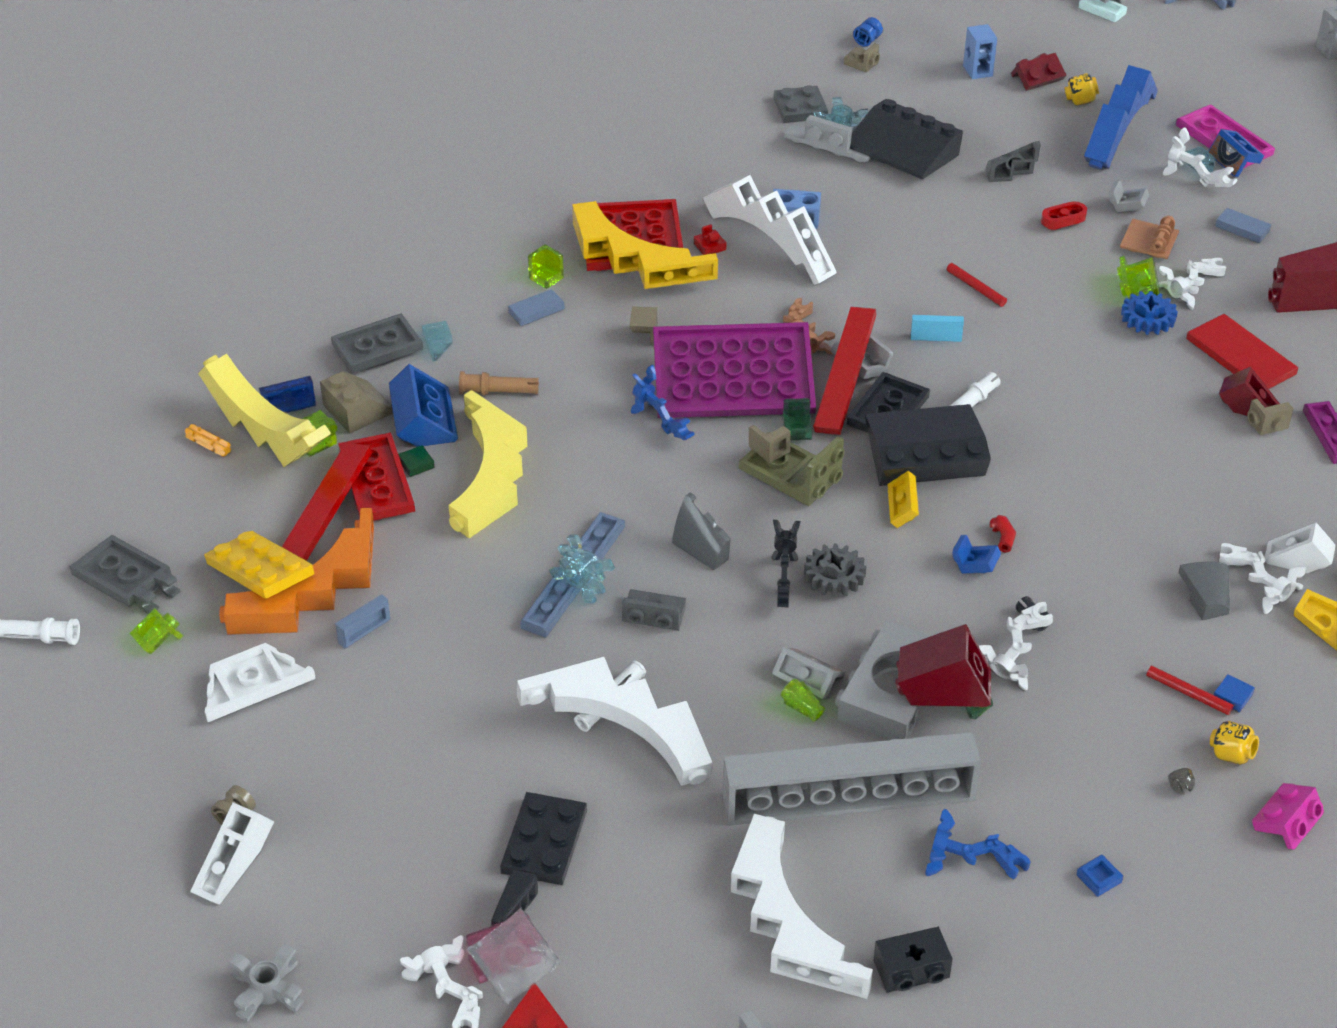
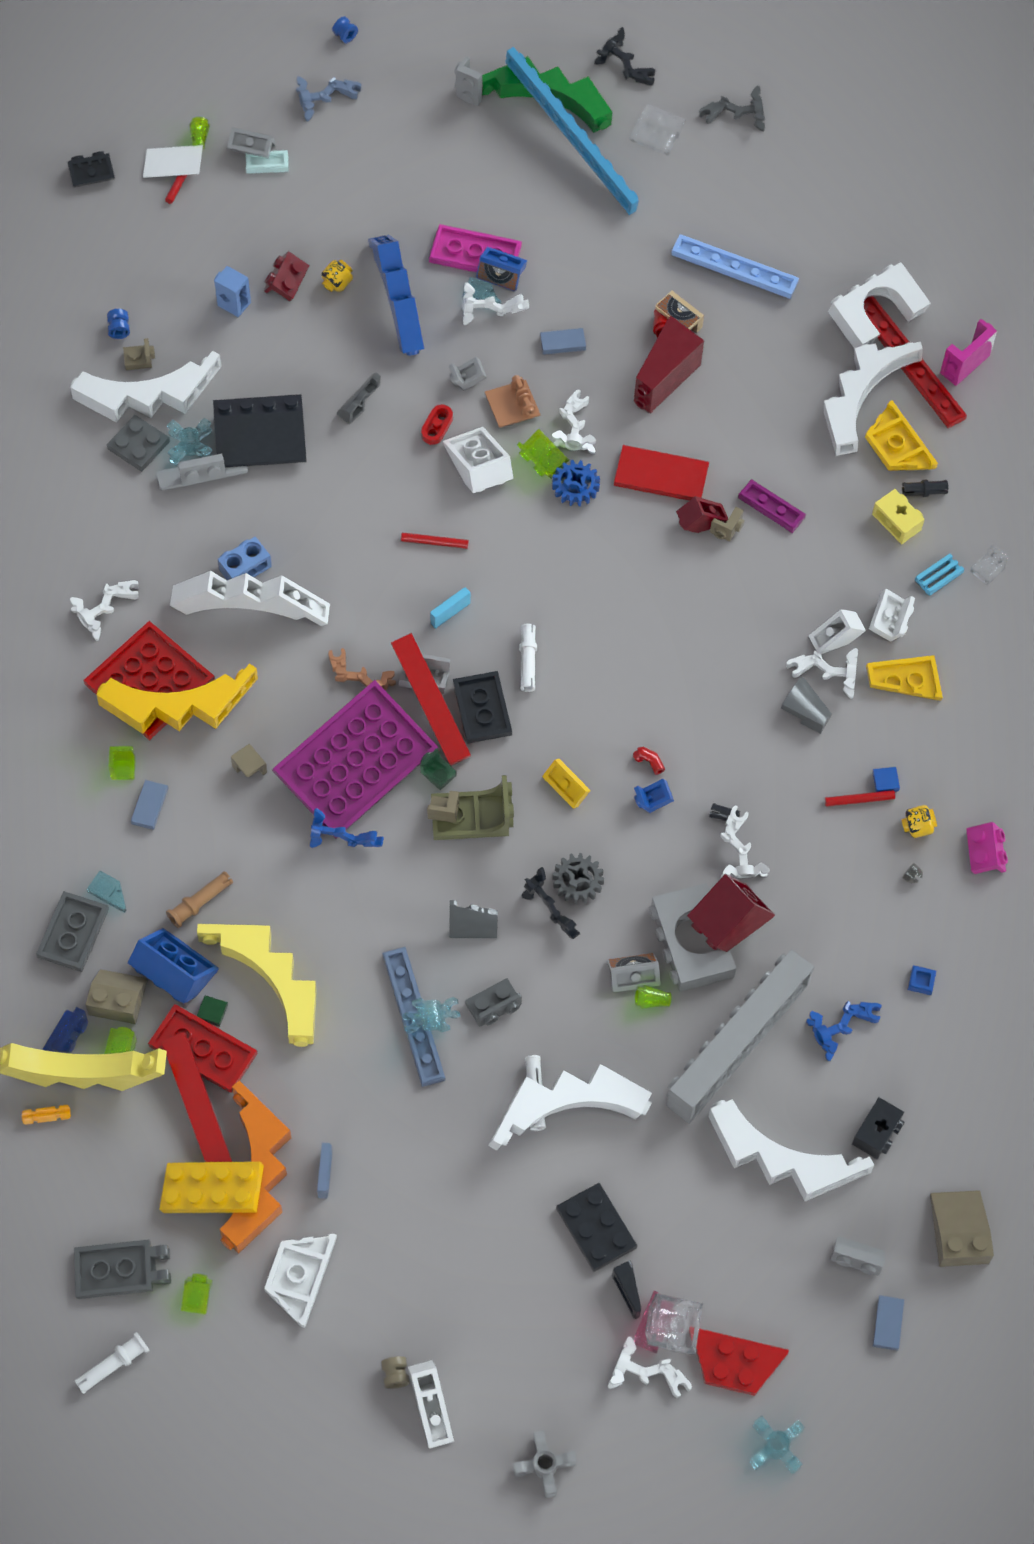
camera: 45 degrees left, 20 degrees up
(679, 175) = (87, 616): none -> white piece
(709, 241) = (211, 643): red tile -> none
(840, 80) = (175, 389): none -> white arch
(928, 443) = (540, 722): black slope -> none
(1074, 255) = (479, 459): none -> white slope

